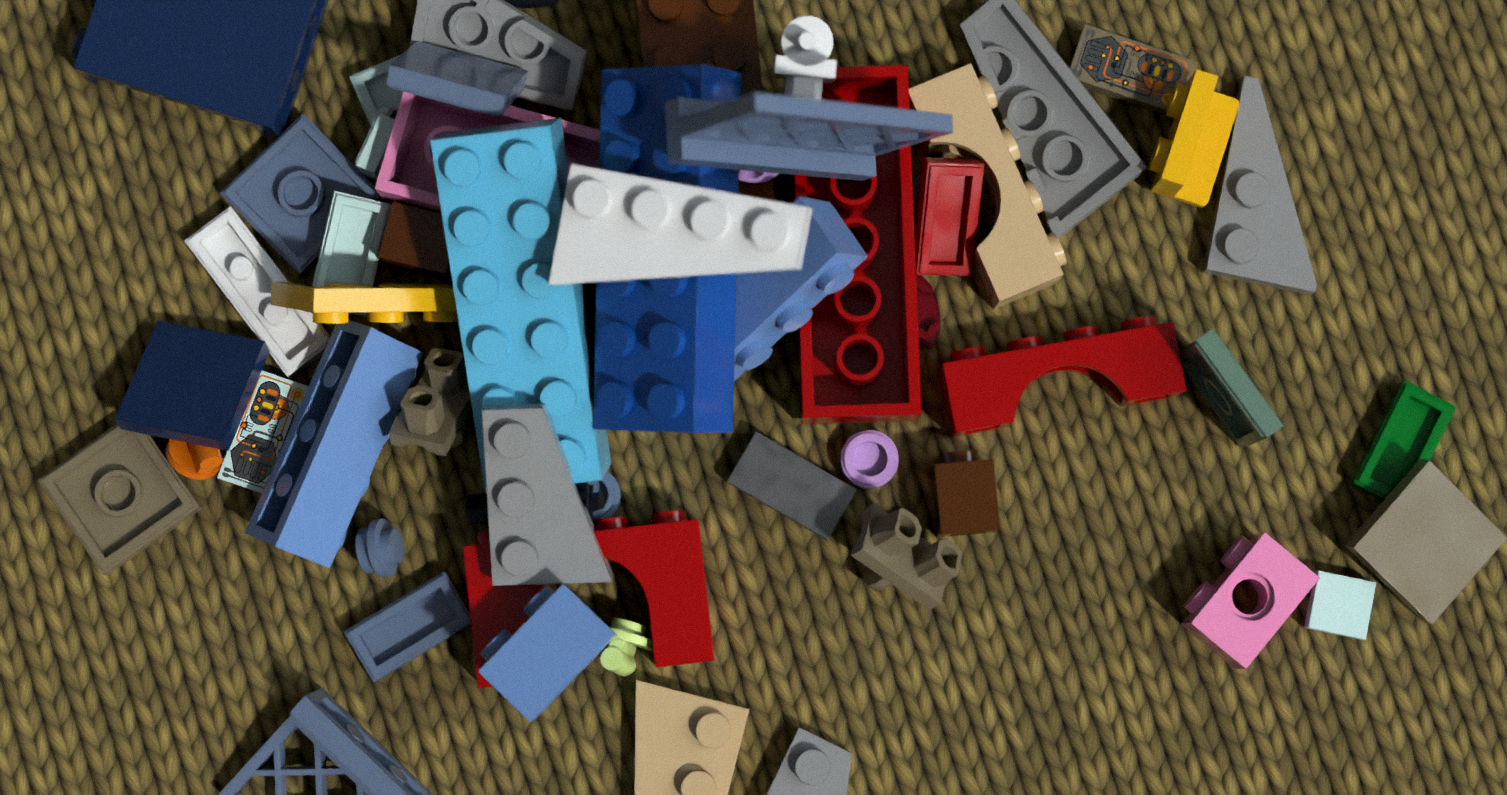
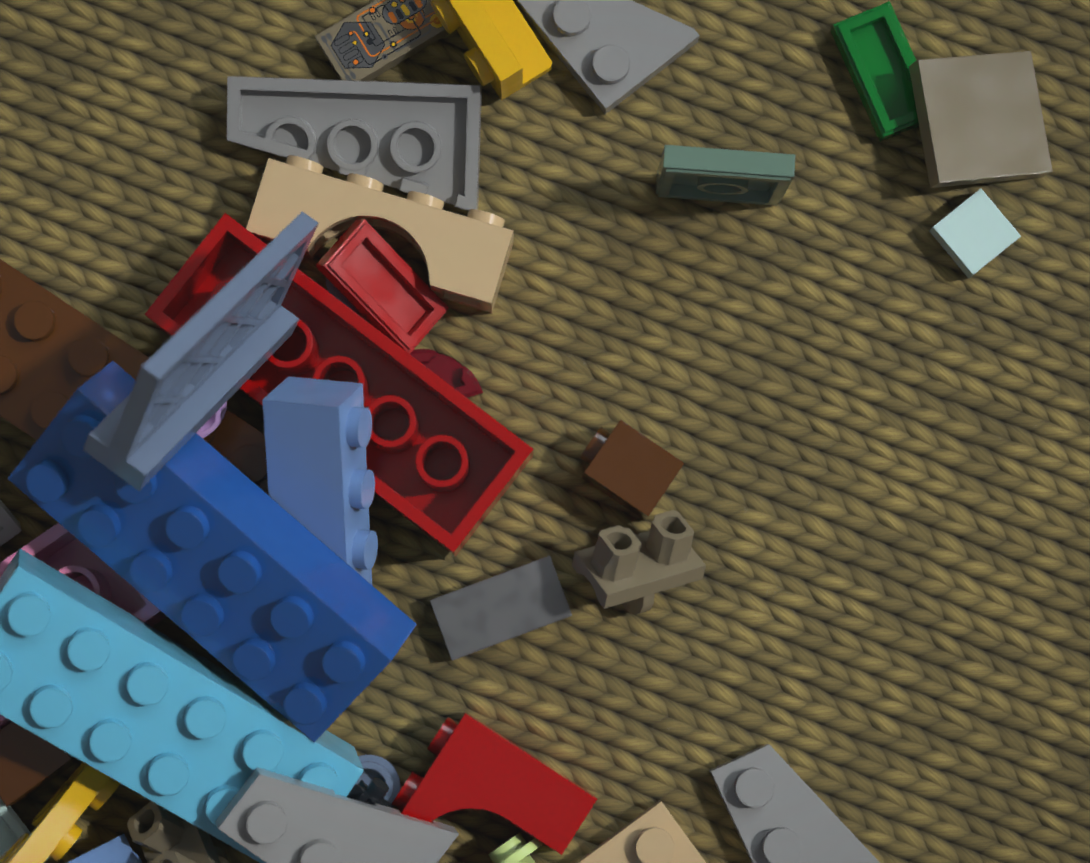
camera: 55 degrees left, 0 degrees up
(655, 228) = (187, 548): white wing -> none
(806, 64) = (154, 301): white hips -> none
(869, 459) = (532, 523): lavender tile -> none
(1133, 364) = (634, 237): red arch -> none
(1280, 587) = (922, 269): bright pink brick -> none

